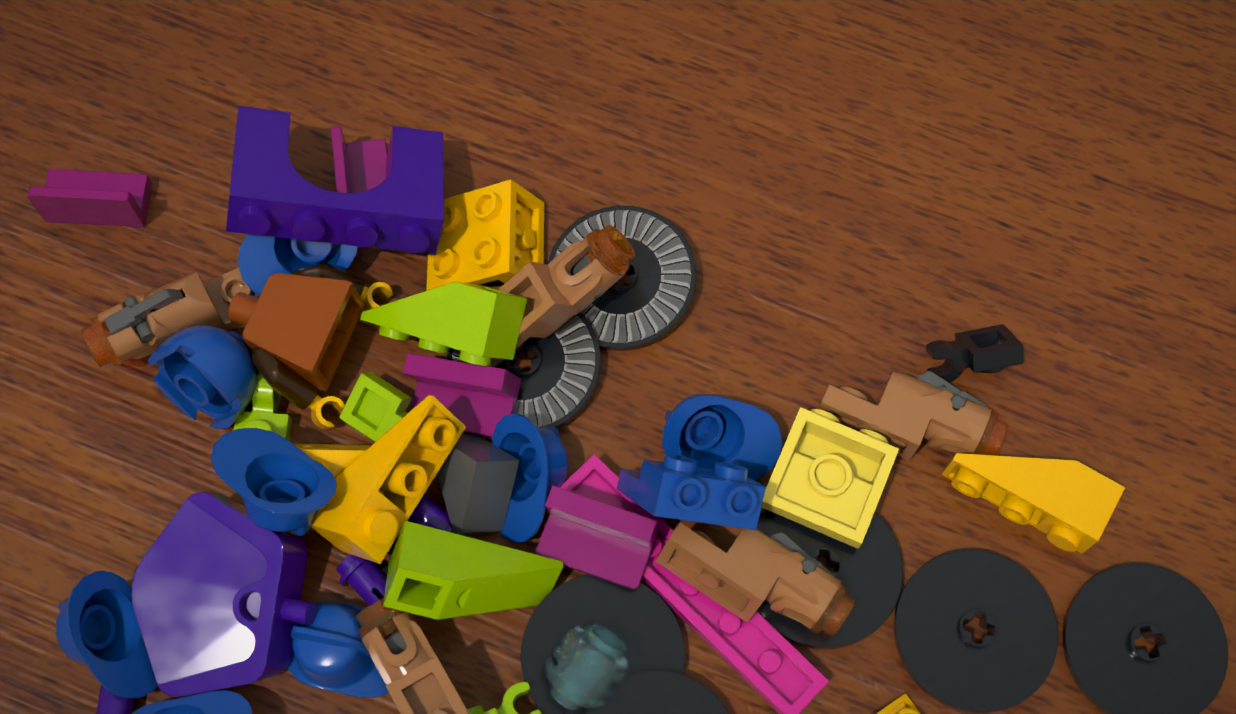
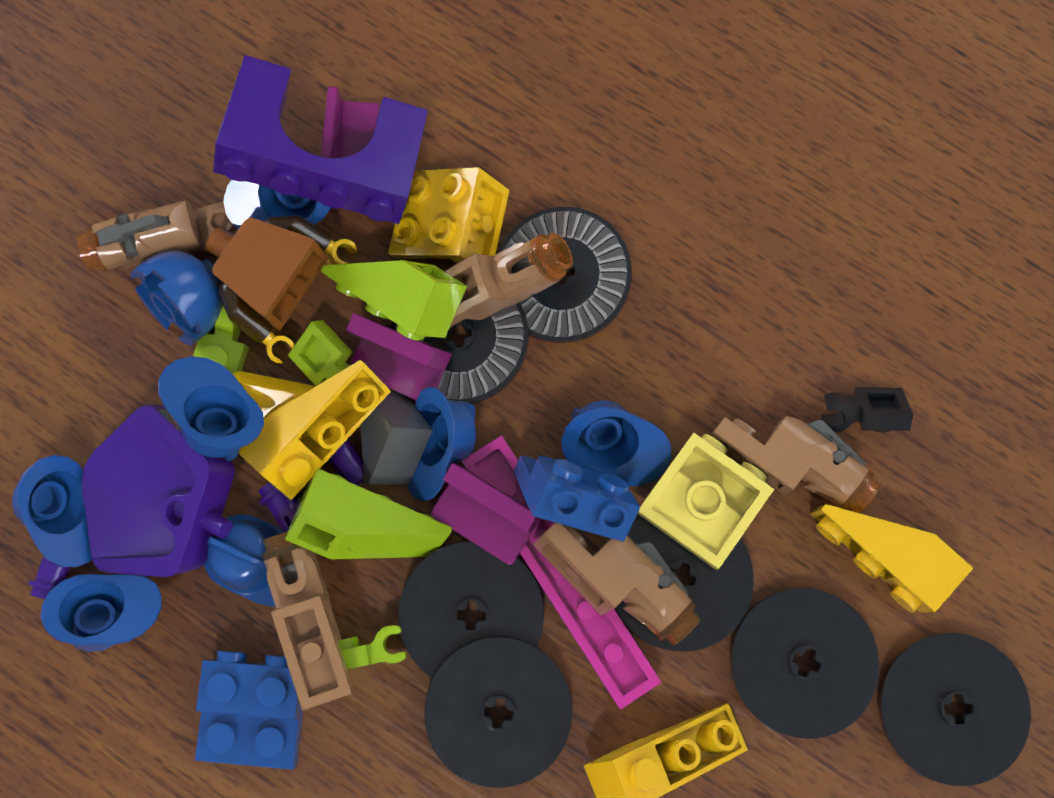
camera: 20 degrees right, 10 degrees up
(93, 198) = (115, 110): magenta panel -> none
(586, 667) = (450, 627): clear light blue head -> none

